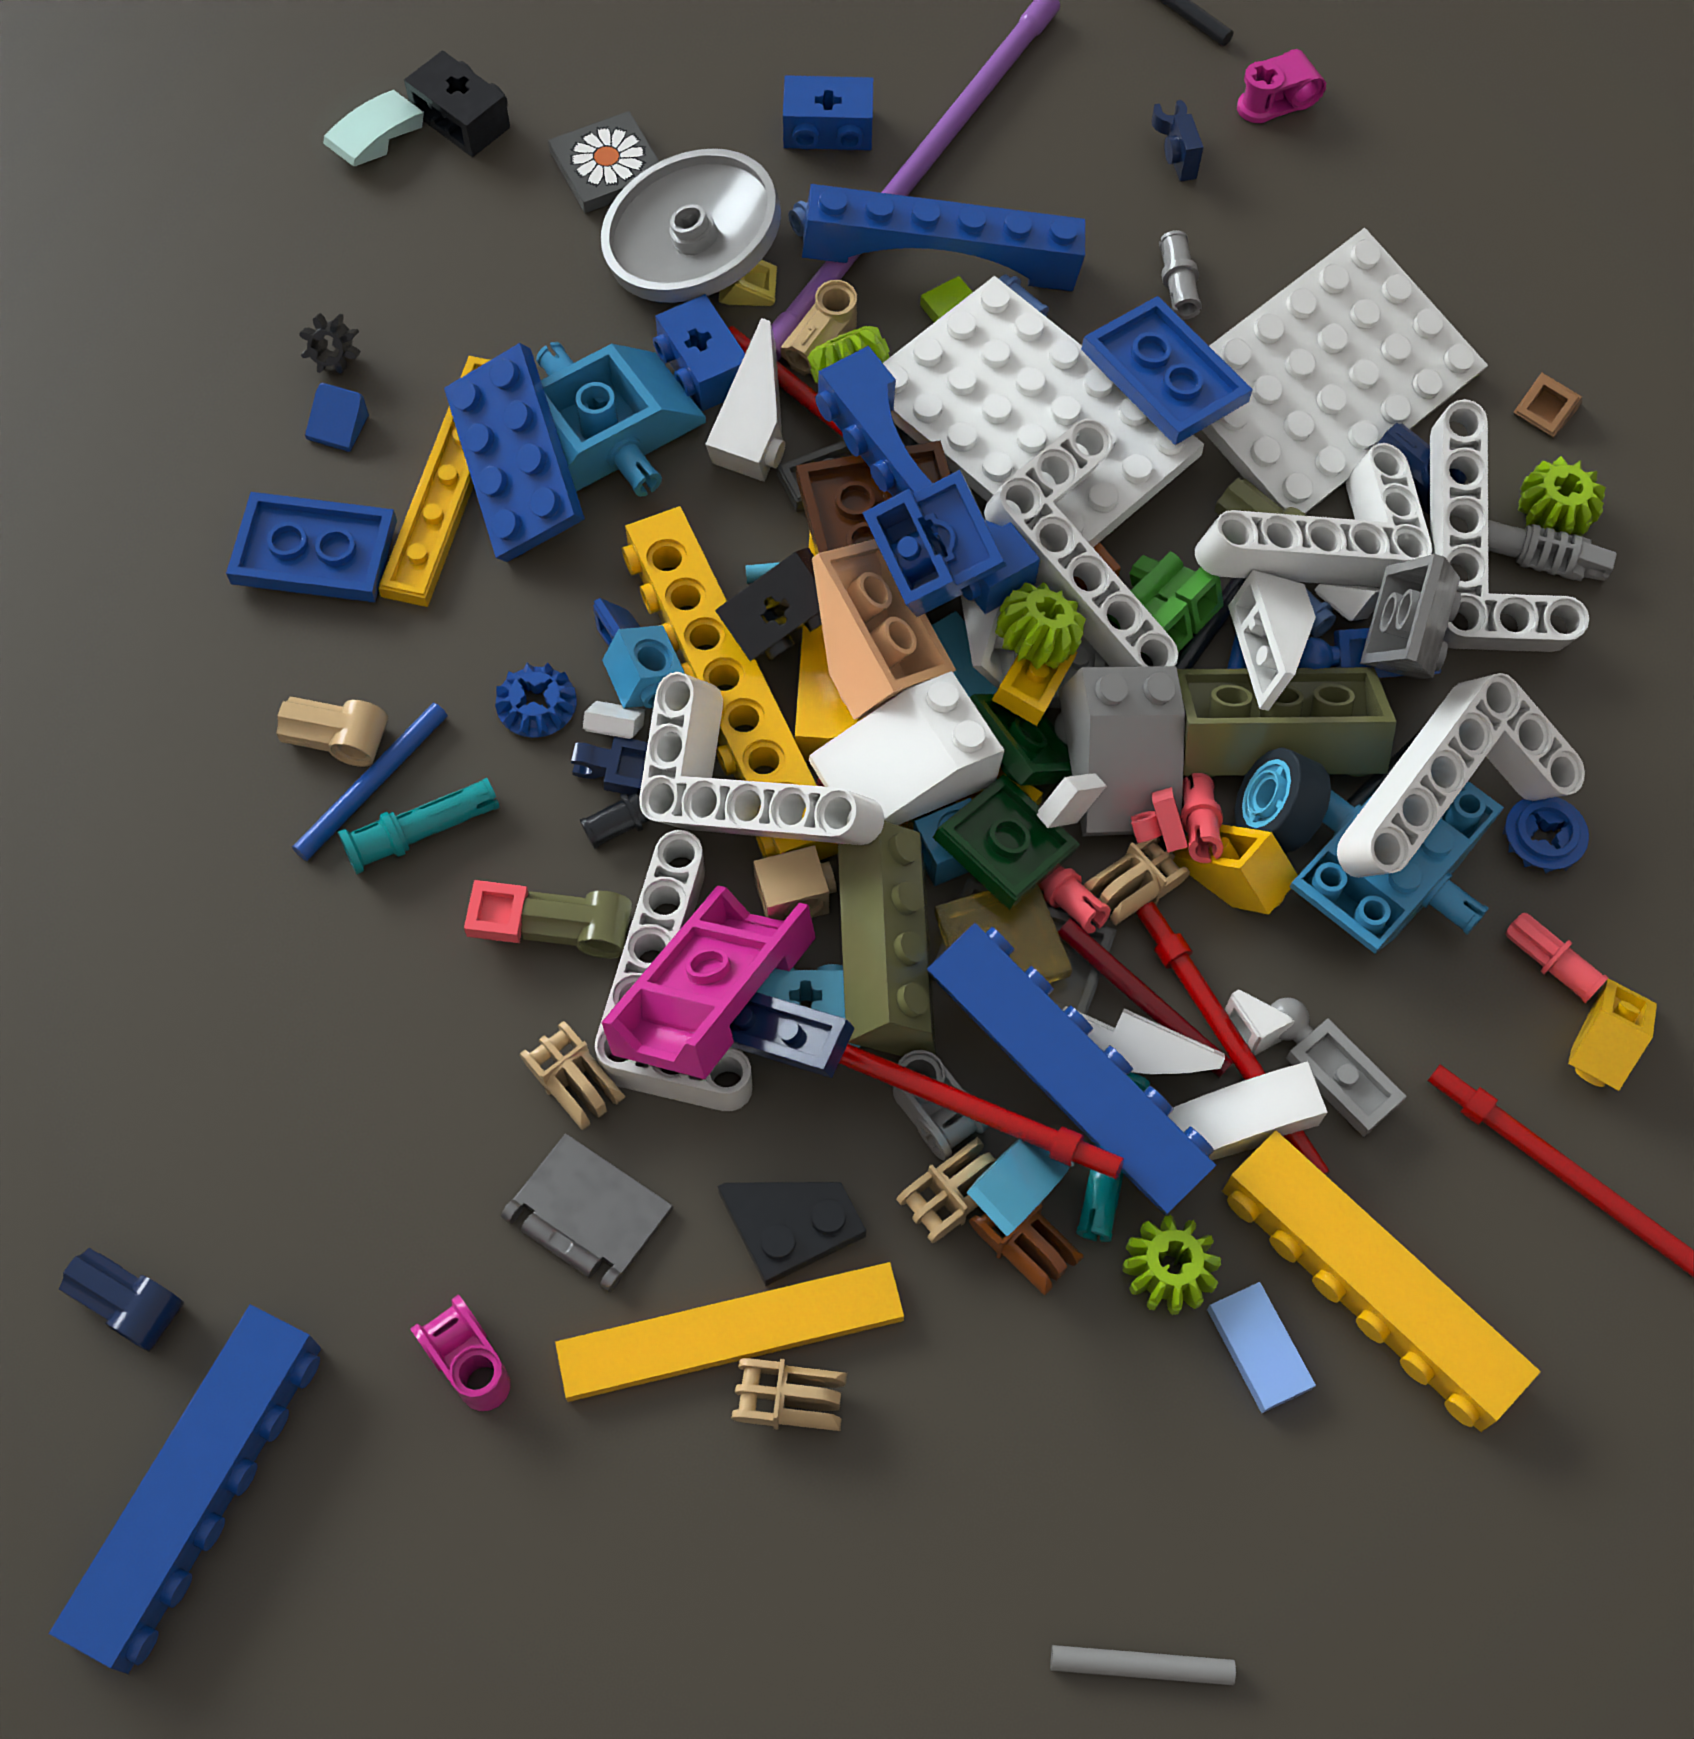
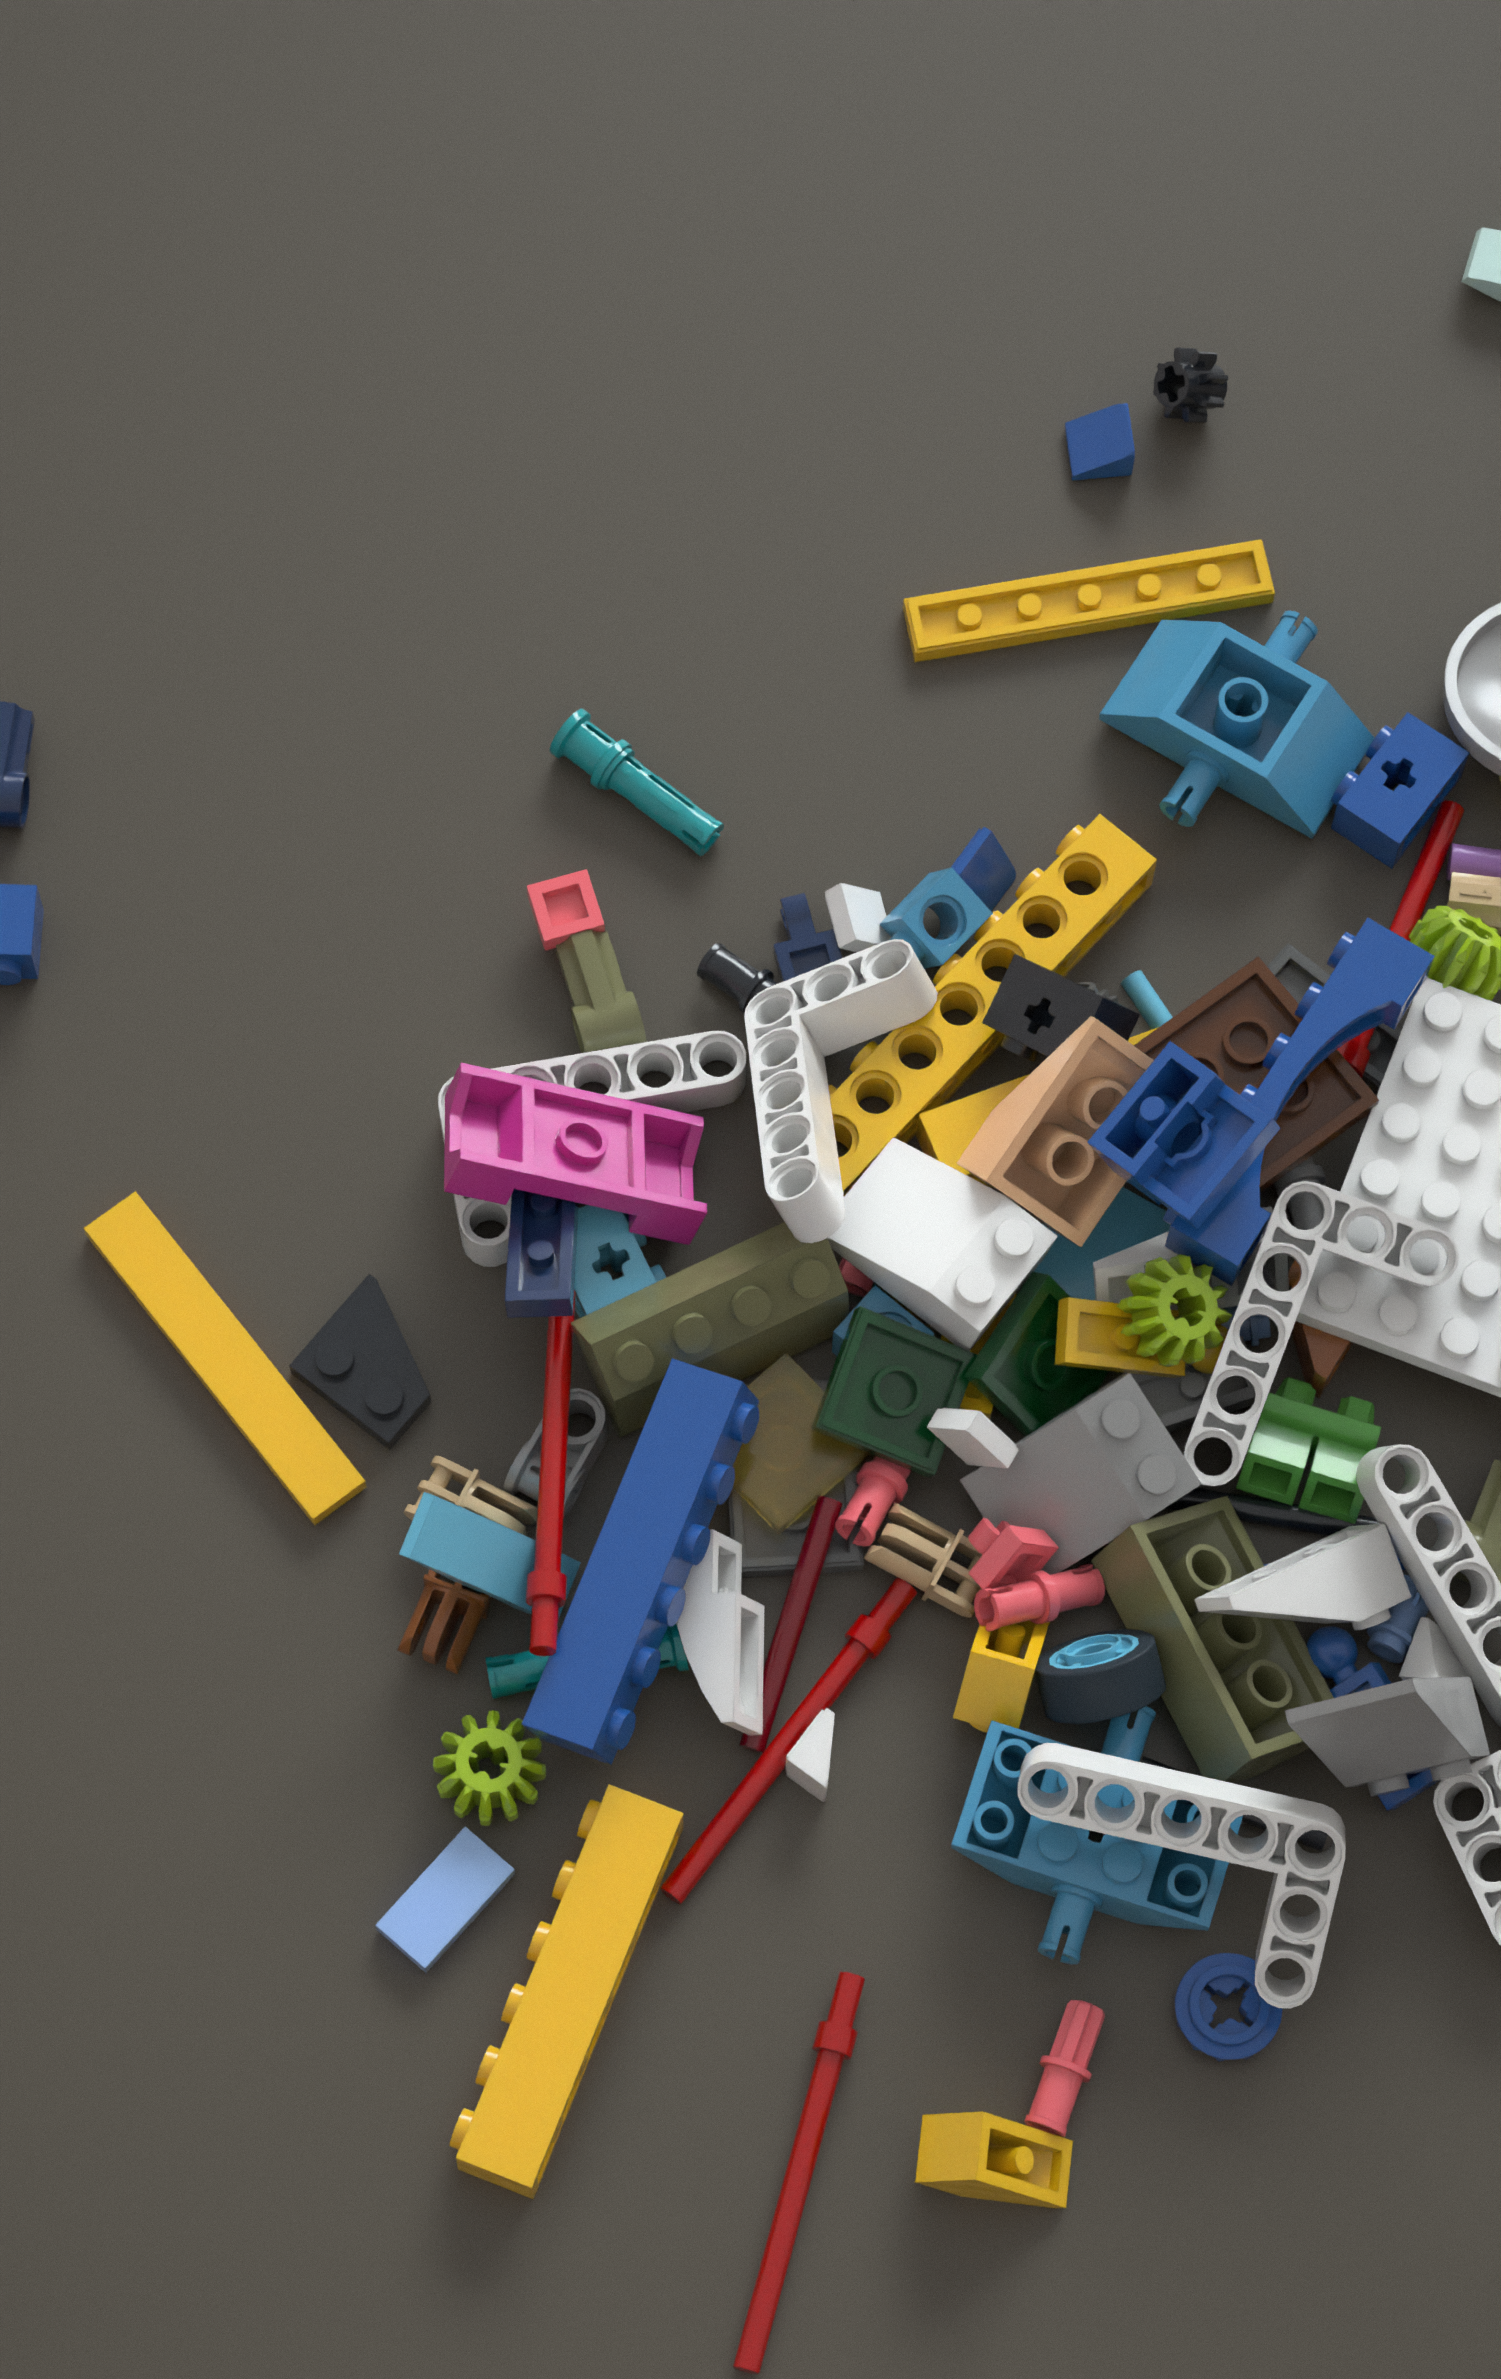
camera: 65 degrees right, 5 degrees up
(312, 547) = (919, 505): blue plate -> none
(347, 732) = (707, 655): tan piece -> none
(369, 781) = (668, 711): blue bar -> none
(458, 1349) = (87, 1101): dark pink piece -> none
(513, 453) = (1134, 650): blue plate -> none
(534, 719) = (862, 851): blue gear -> none
(569, 1071) = (423, 1069): tan arm -> none
(588, 1211) = (288, 1161): flat silver piece -> none
(749, 423) = (1333, 882): white slope -> none
(789, 1395) = (175, 1434): tan arm -> none
(794, 879) = (737, 1194): tan brick -> none
(1143, 1665) = (60, 1901): light grey bar -> none
(1251, 1110) = (695, 1779): white slope -> none
(1340, 1069) = (805, 1863): light grey plate -> none

